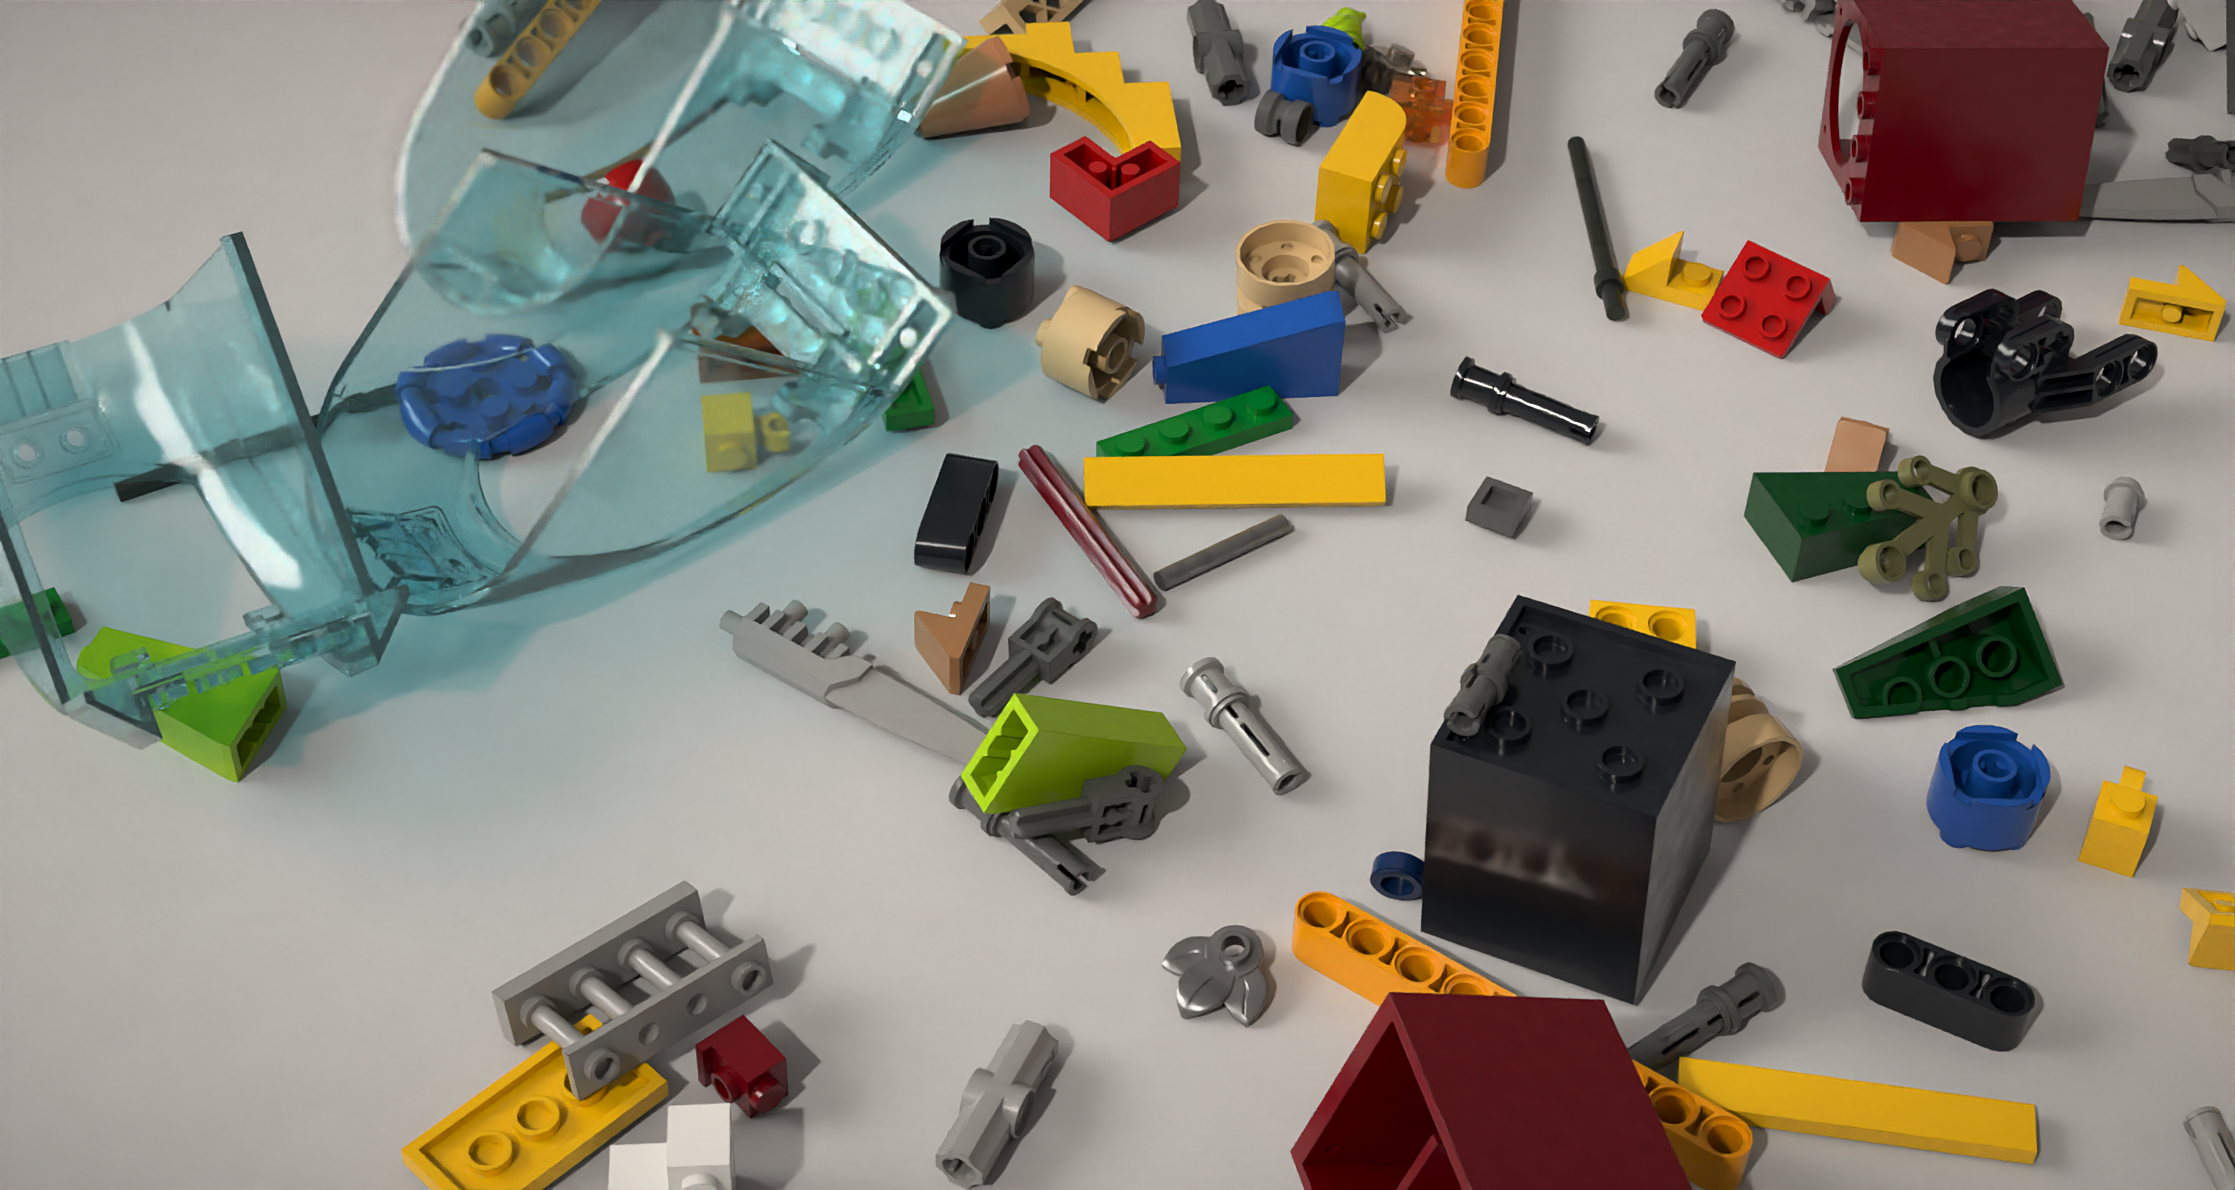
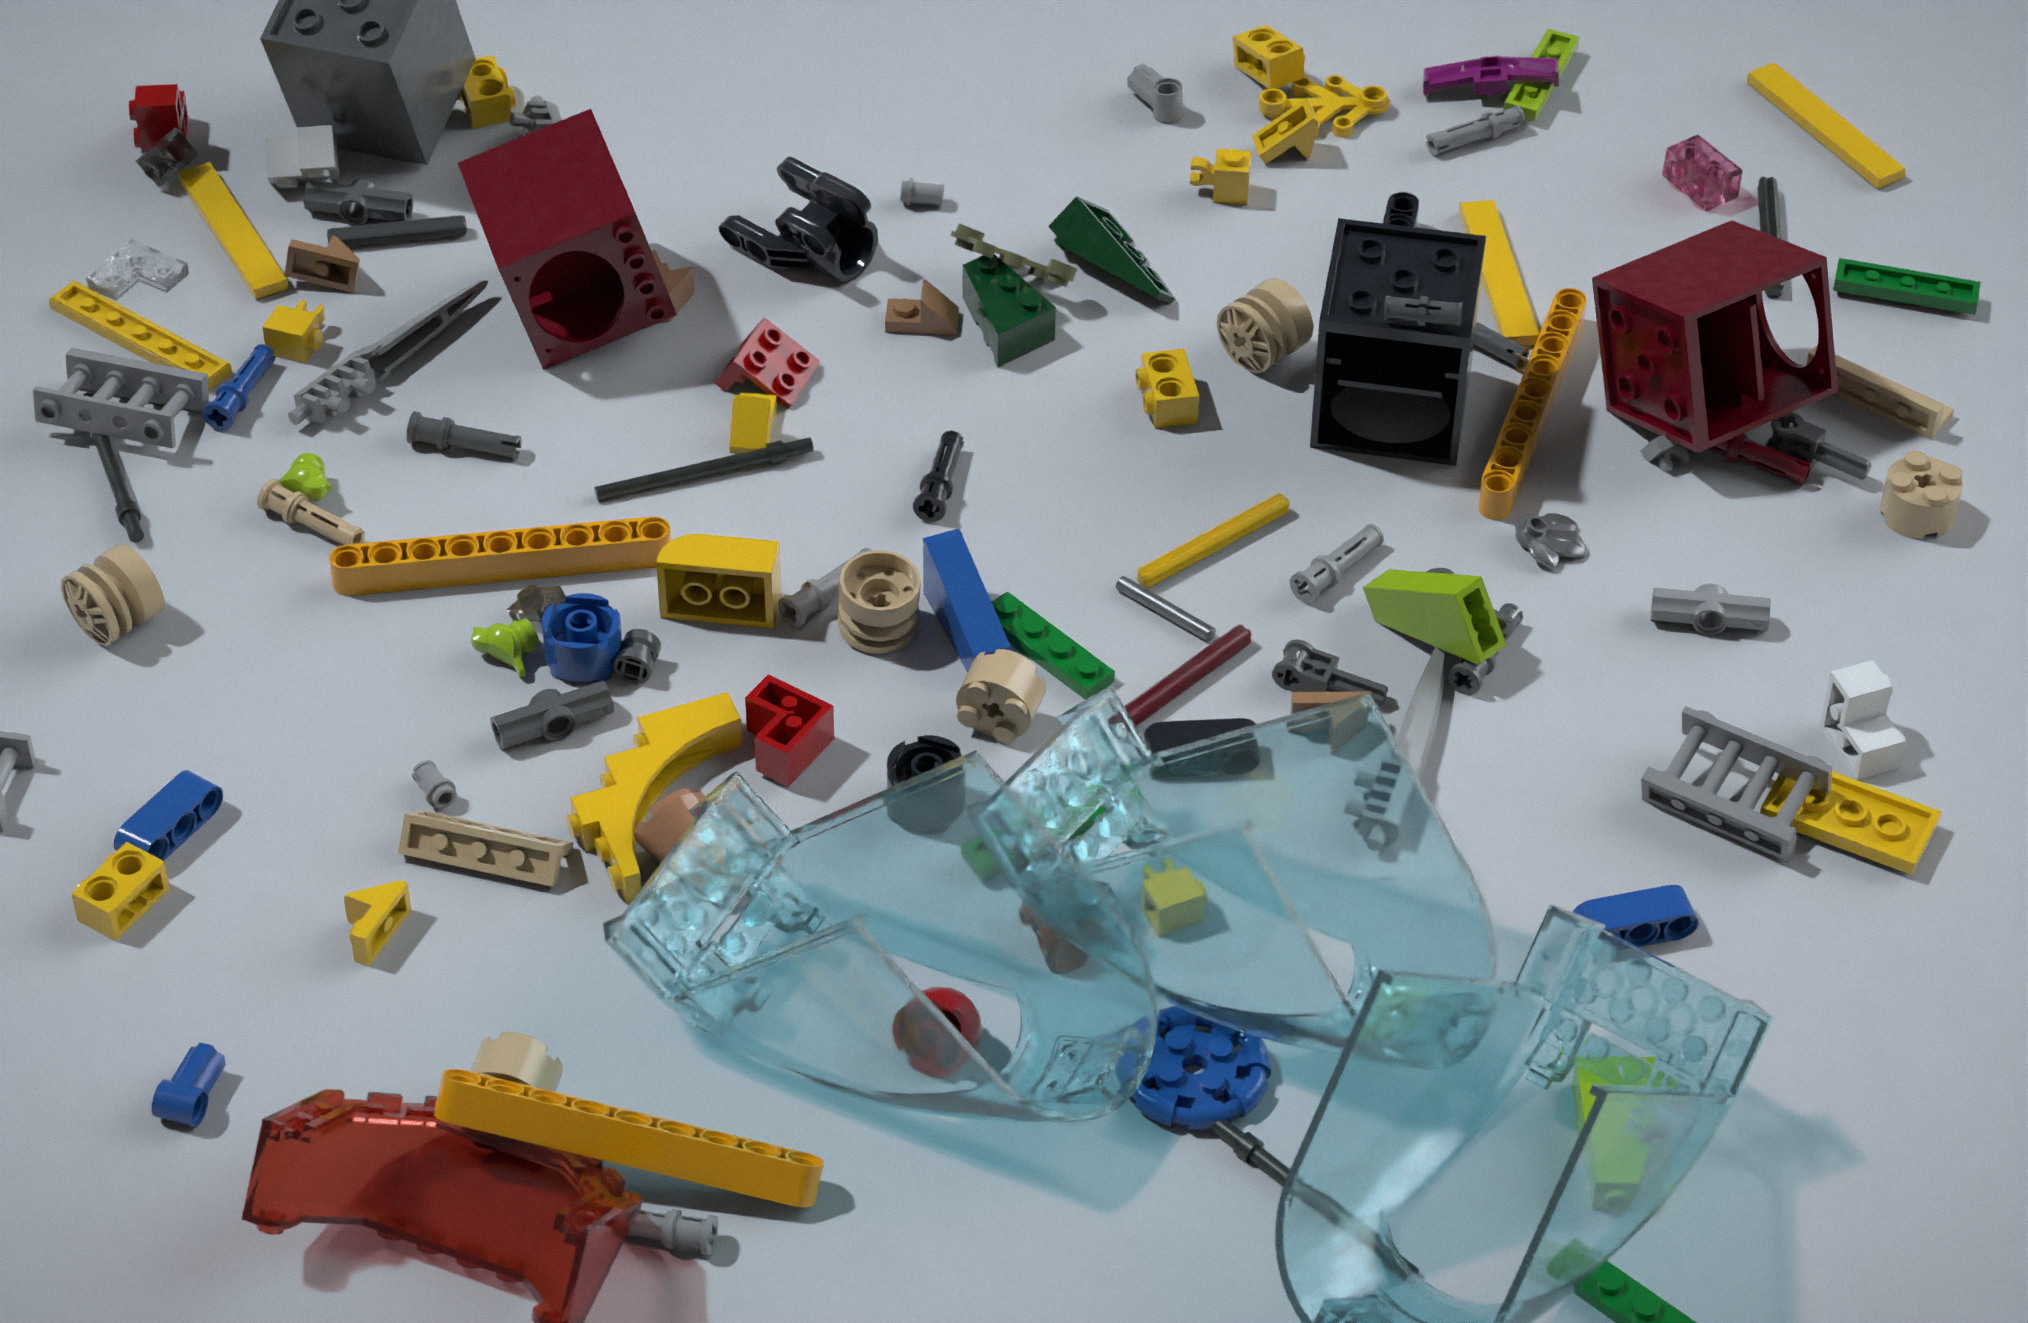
camera: 105 degrees left, 0 degrees up
(477, 824) = (1644, 915): none -> blue beam
(743, 1067) = (1759, 717): dark red brick -> none
(1234, 481) = (1098, 608): yellow tile -> none
(1332, 626) = (1212, 540): none -> yellow axle
(1398, 875) = (1432, 468): dark blue tile -> none
(1423, 106) = (607, 572): clear orange brick -> none
(1499, 506) = (1059, 472): dark grey plate -> none
(1987, 789) = (1231, 225): blue brick -> none
(2180, 308) = (690, 172): yellow slope -> none

